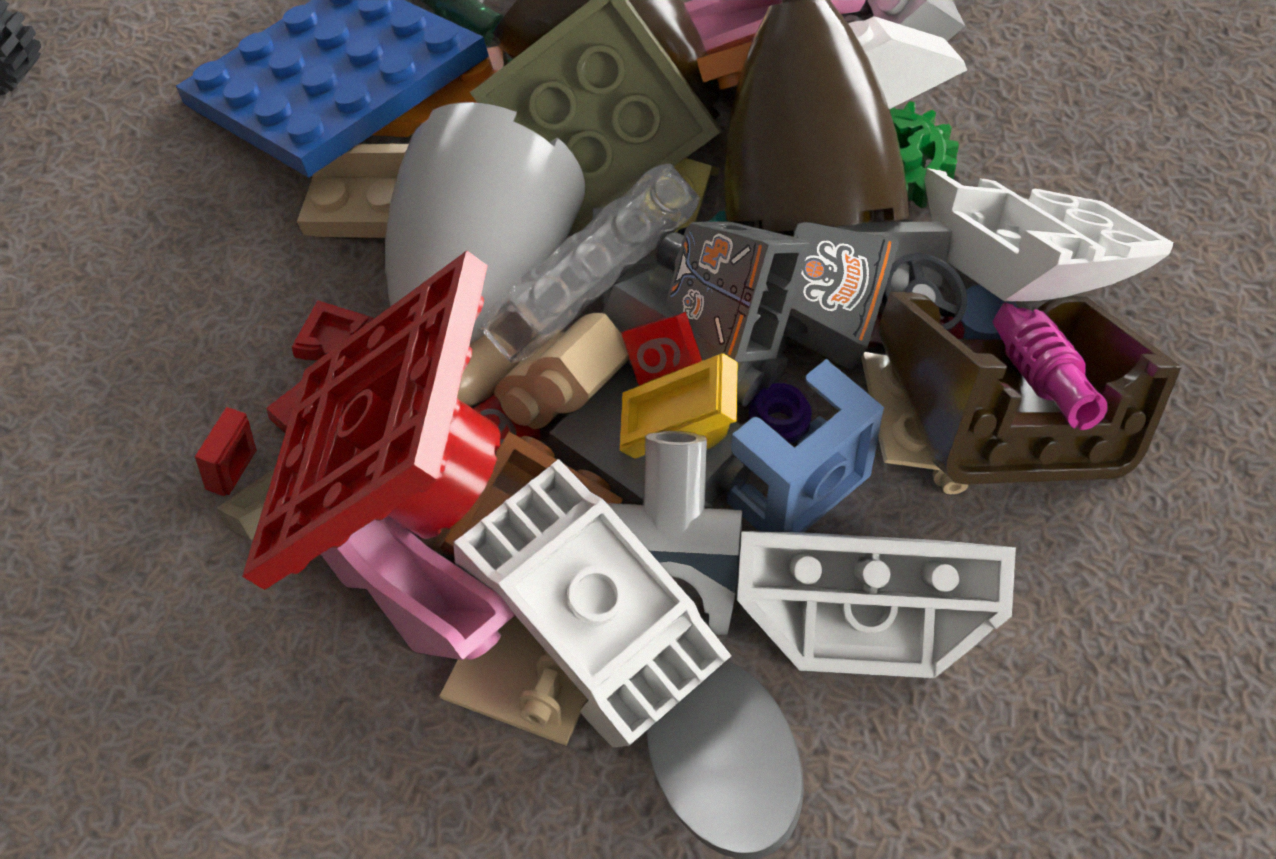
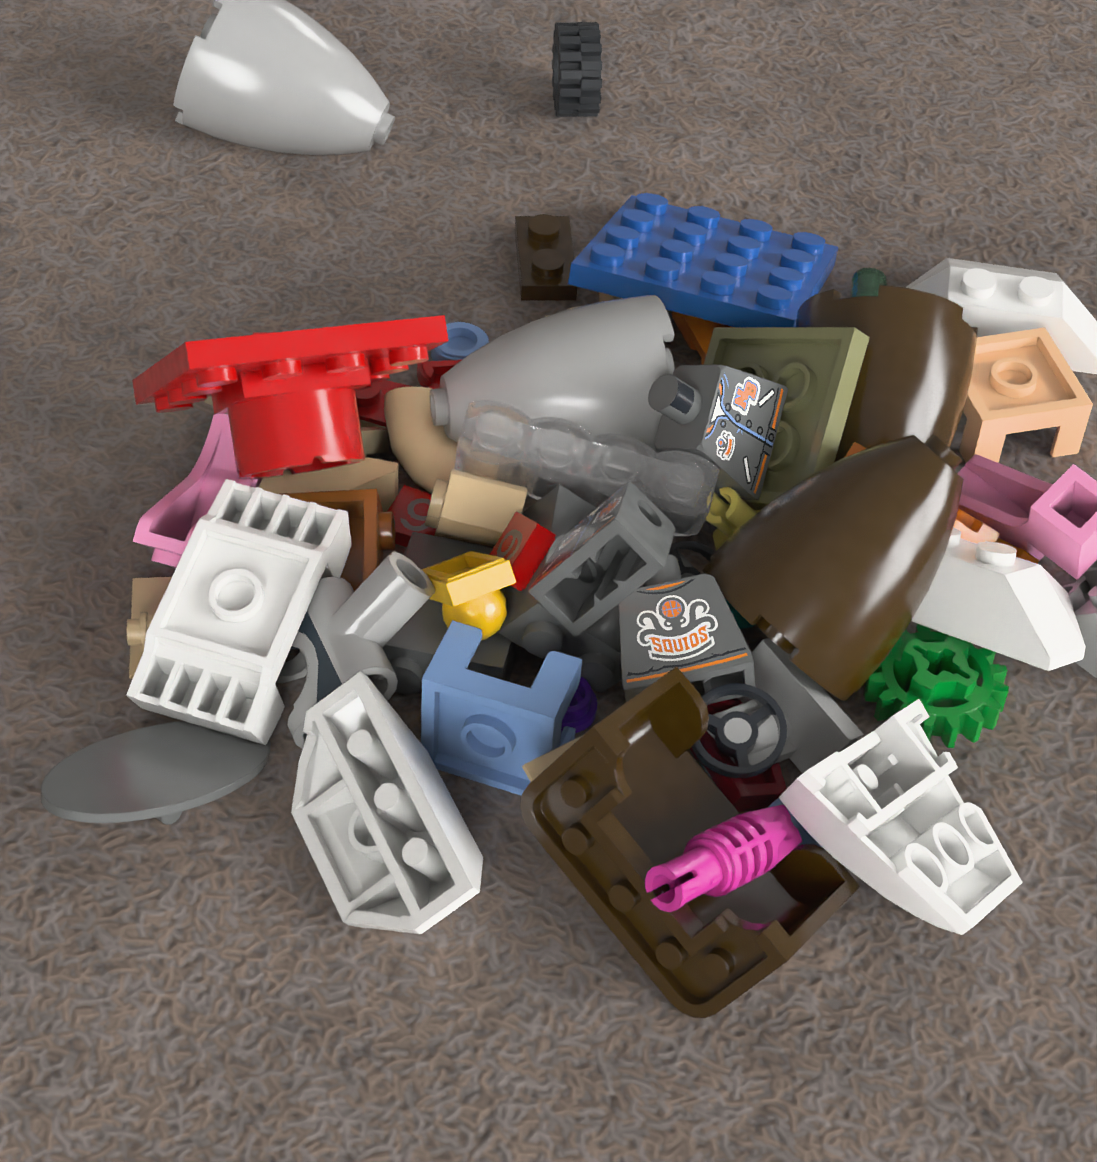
camera: 60 degrees right, 10 degrees down
(208, 189) = (544, 257): none -> dark brown plate
(284, 305) = (463, 340): none -> medium blue tile
(605, 139) = (722, 418): none -> dark grey torso

